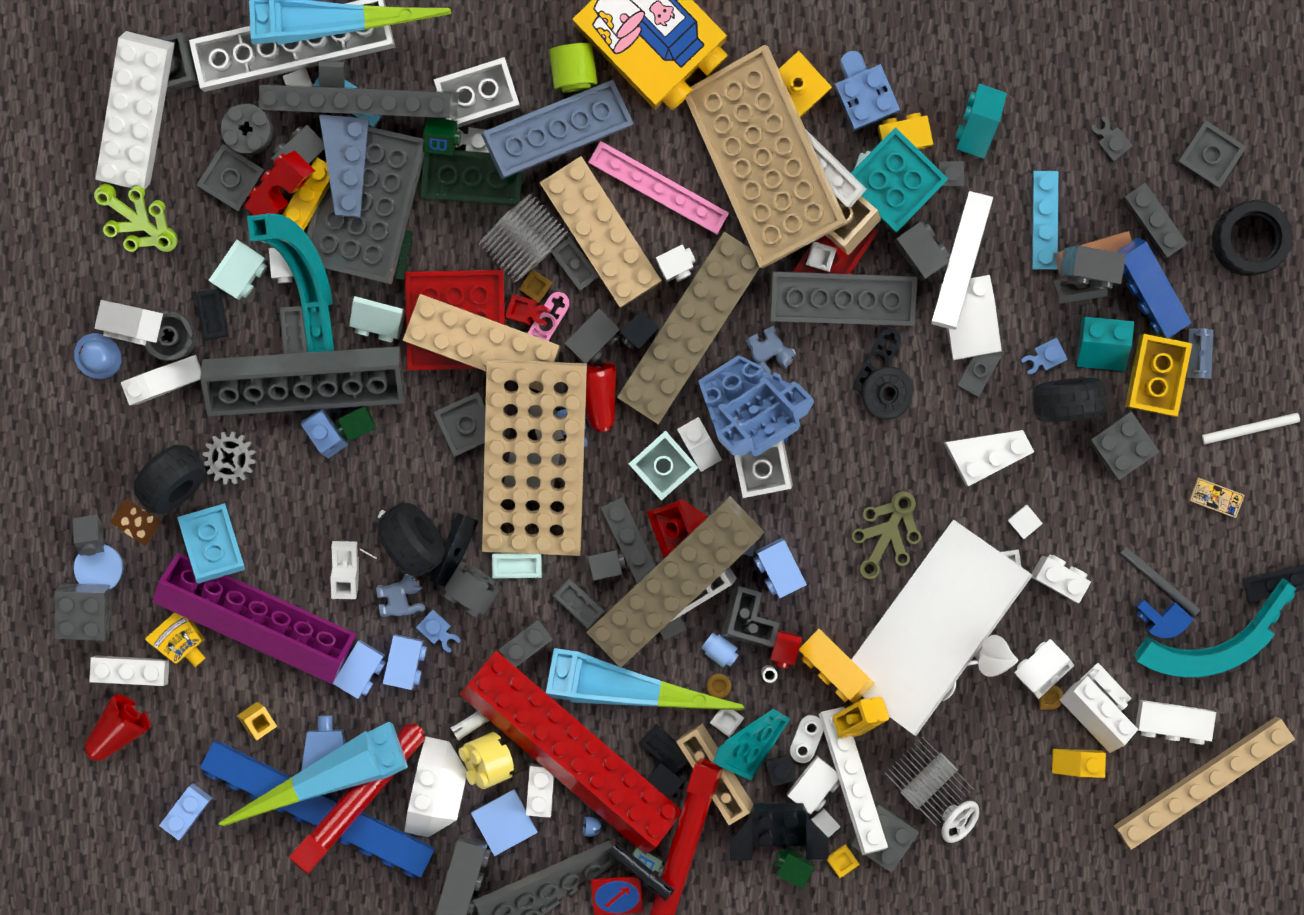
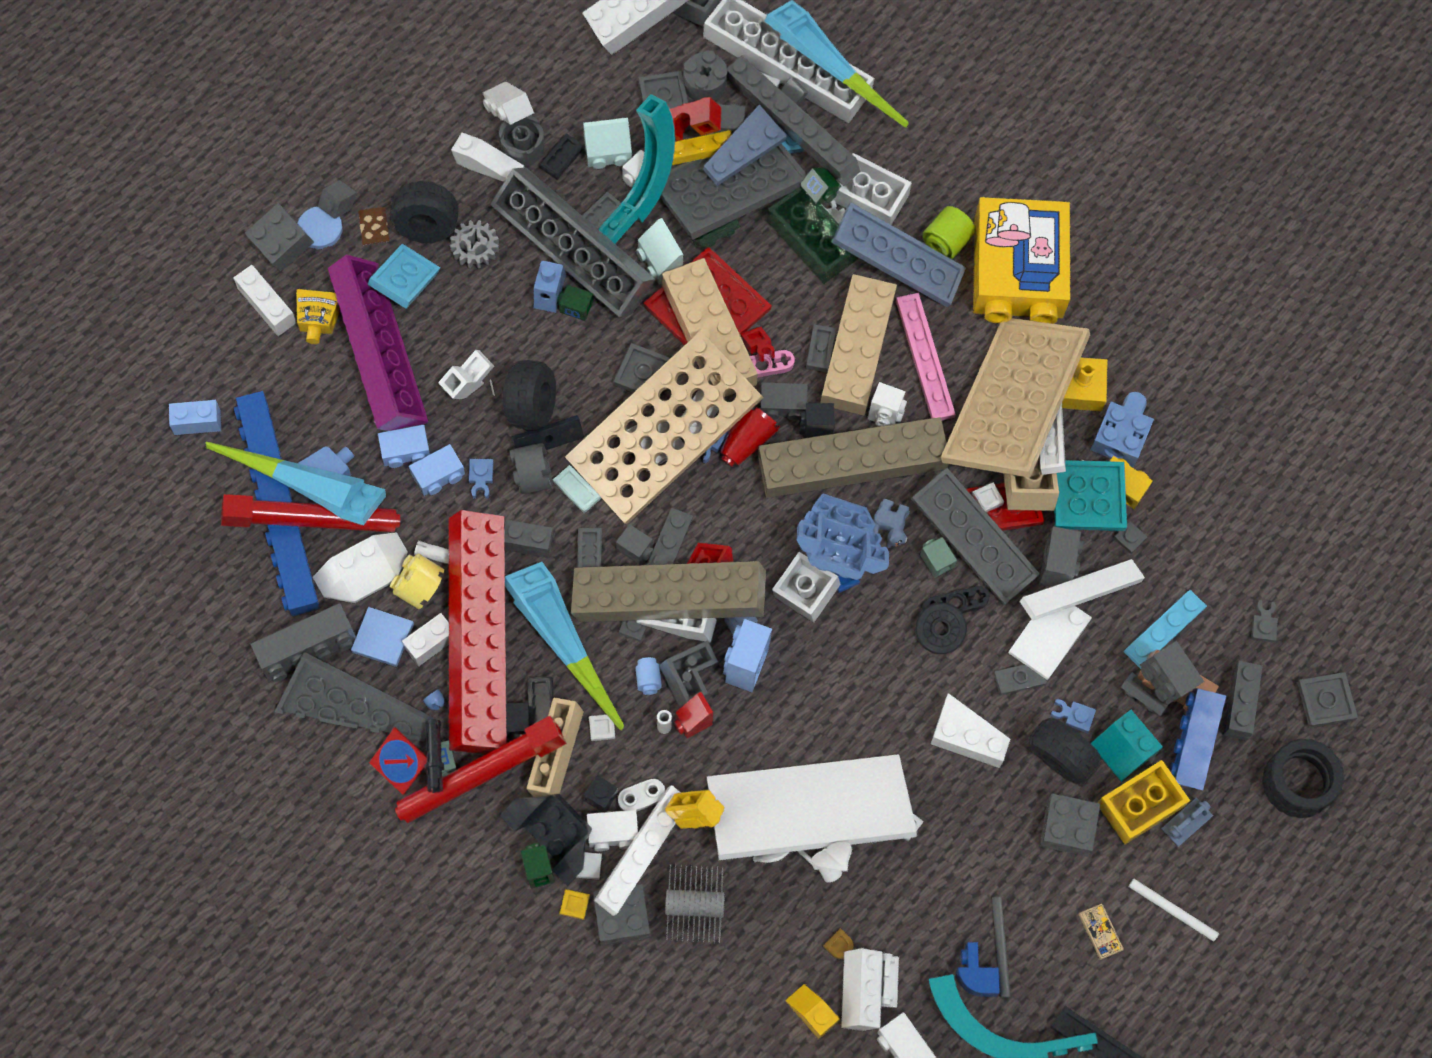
camera: 45 degrees right, 20 degrees down
(97, 356) = (465, 113): medium blue hat -> none
(116, 728) = (215, 323): red cone -> none
(138, 221) = (582, 60): lime plant -> none
(256, 721) = (304, 408): yellow brick -> none
(397, 598) = (479, 428): sand blue animal -> none
(523, 237) = (806, 292): light grey piece -> none
(535, 286) = (781, 337): pearl gold tile -> none
(663, 465) = (741, 520): light aqua brick -> none
(699, 444) = (780, 532): white slope -> none
(718, 685) = (622, 699): pearl gold tile -> none
(750, 746) = (600, 753): teal plate -> none
(830, 340) = (938, 556): none -> sand green brick
(835, 667) = (714, 761): yellow brick -> none
(889, 531) = (845, 718): olive plant -> none
(958, 819) = (685, 958): white piece -> none
(981, 120) = (1186, 518): teal brick -> none
(1025, 521) = (947, 808): white tile -> none
(1043, 668) = (856, 917): white brick -> none
(1065, 581) = (932, 865): white brick -> none

